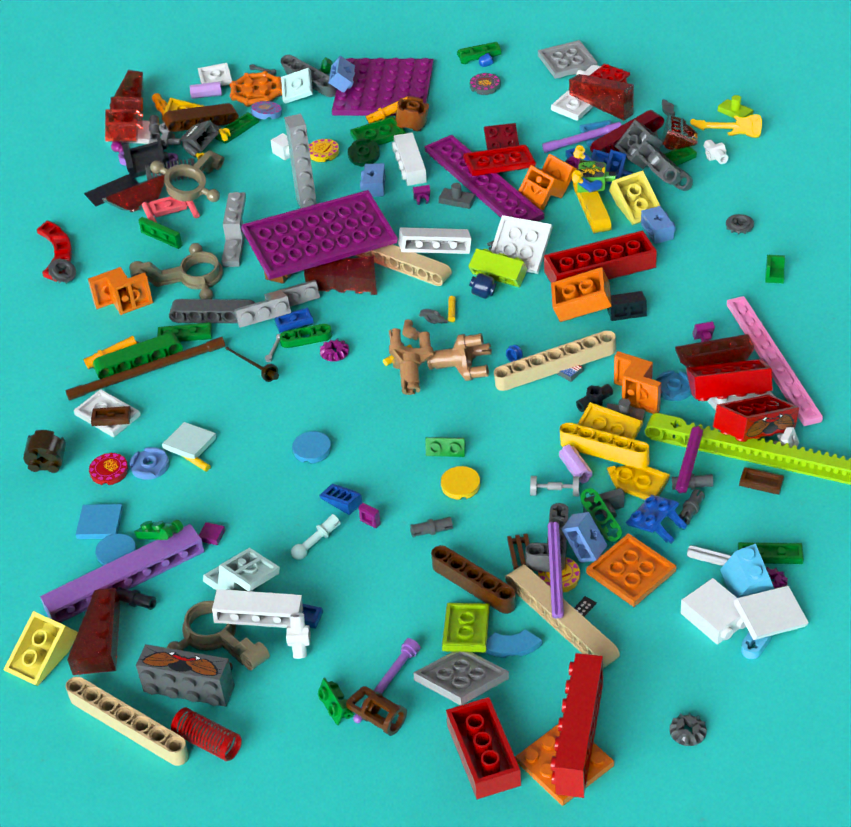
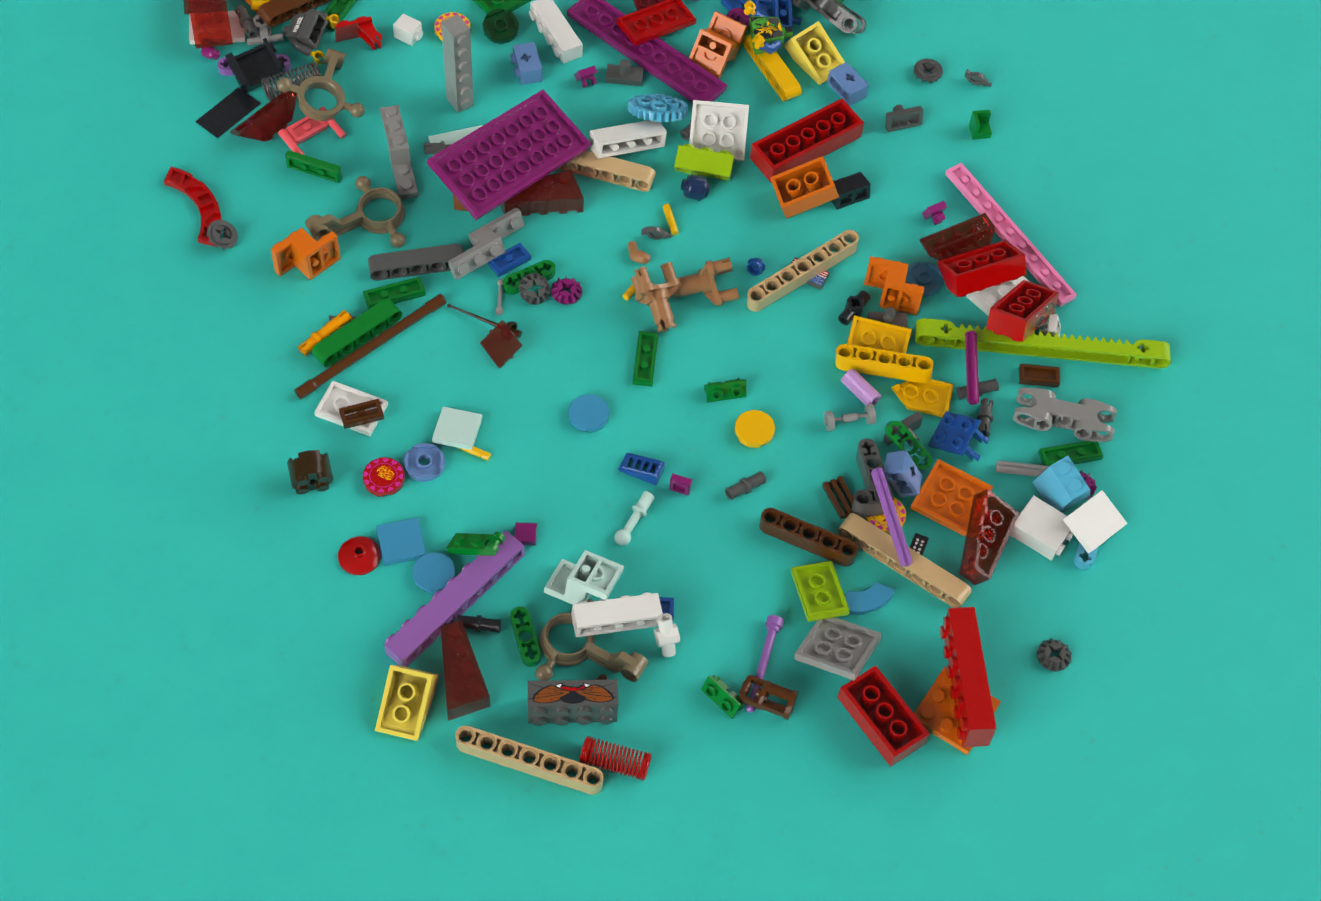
camera: 25 degrees left, 15 degrees up
(59, 527) = (359, 563): none -> red dish
(168, 610) = (533, 642): none -> green beam
(239, 140) = (362, 28): none -> red plate
(256, 381) = (501, 344): none -> clear red piece
(311, 348) = (530, 296): none -> dark grey gear
(382, 412) = (645, 358): none -> green tile
(471, 221) = (657, 107): none -> medium azure gear
(653, 601) = (986, 536): none -> clear red wedge
(701, 256) = (903, 118): none -> dark grey tile
(784, 234) = (976, 78): none -> dark grey piece
(786, 520) = (1048, 411): none -> light grey piece

